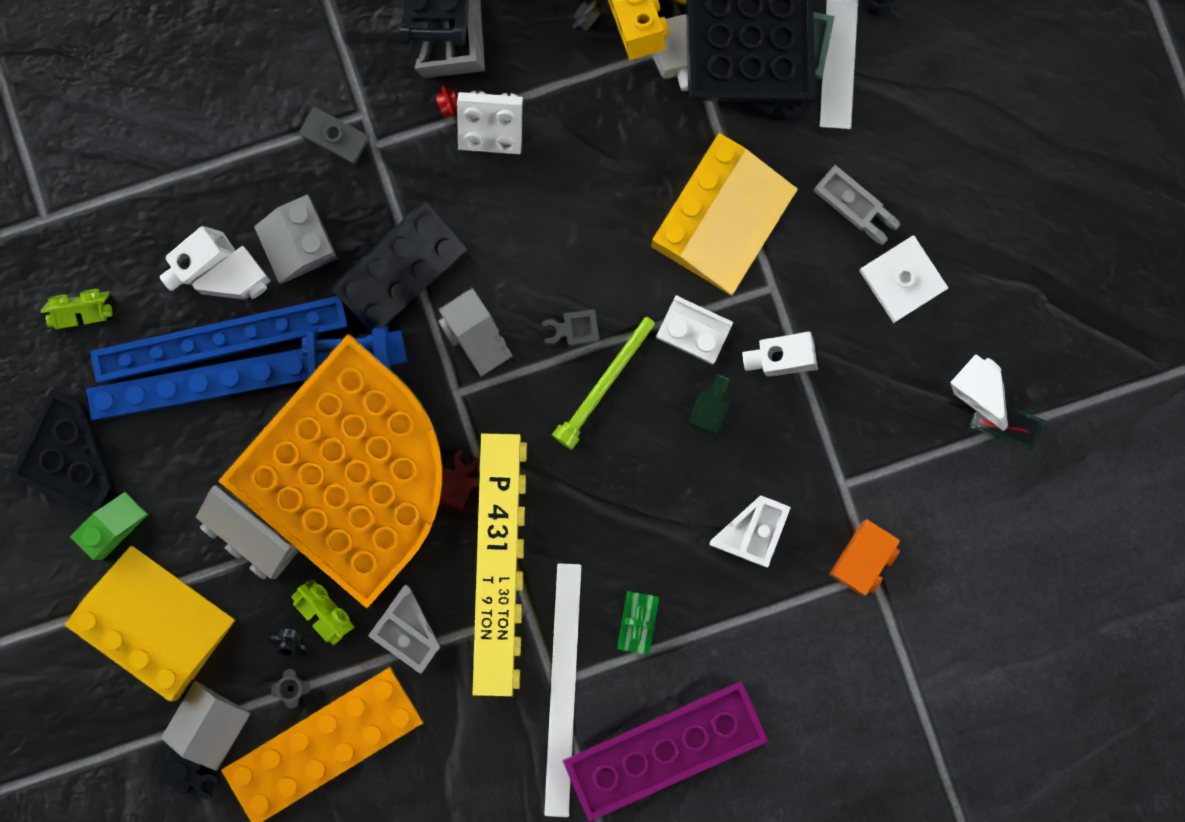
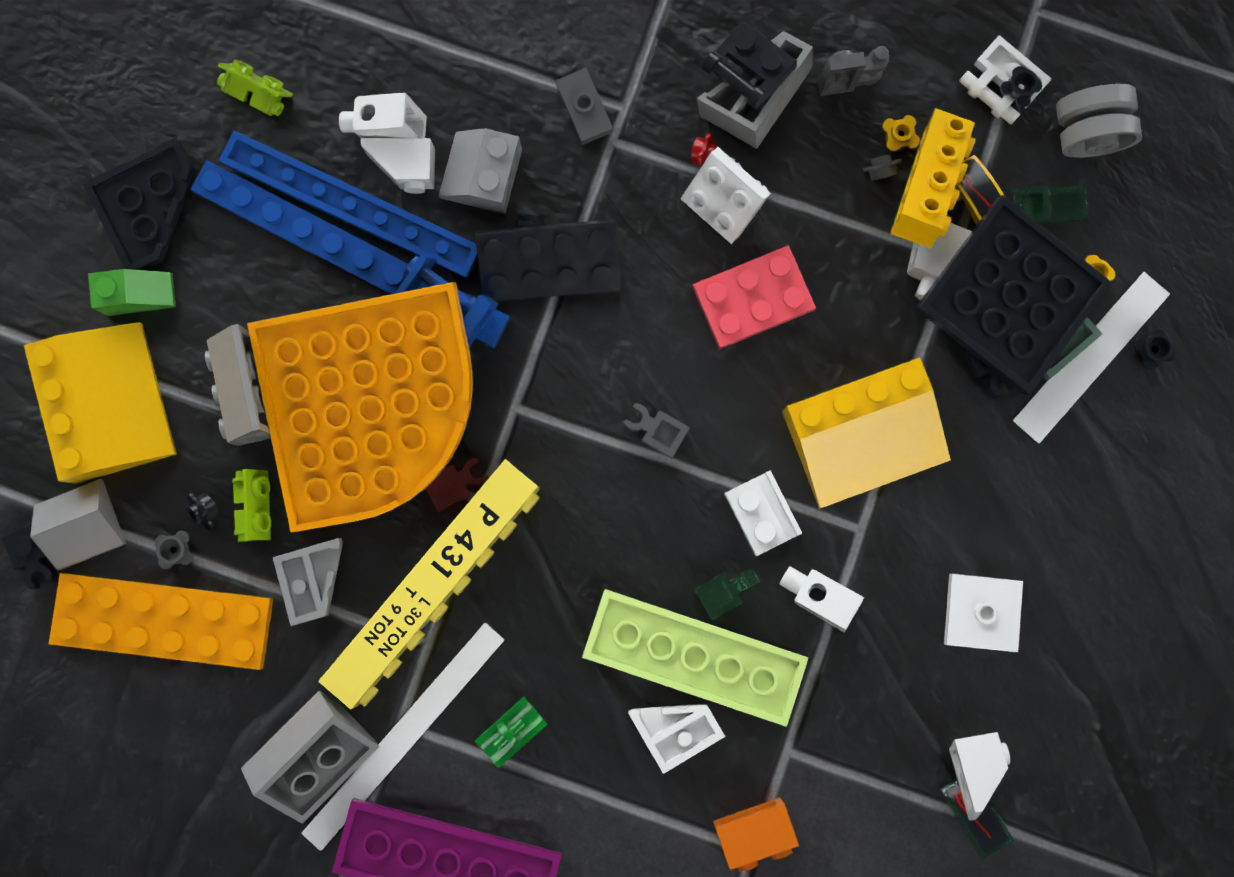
camera: 40 degrees right, 0 degrees up
(471, 326) = (568, 365): light grey wedge -> none
(508, 756) = (308, 758): none -> light grey slope
(567, 180) = (754, 297): none -> coral plate
(569, 431) = (584, 516): lime piece -> none
(726, 469) = (695, 657): none -> yellowish green plate
(855, 203) = (992, 513): light grey hinge -> none

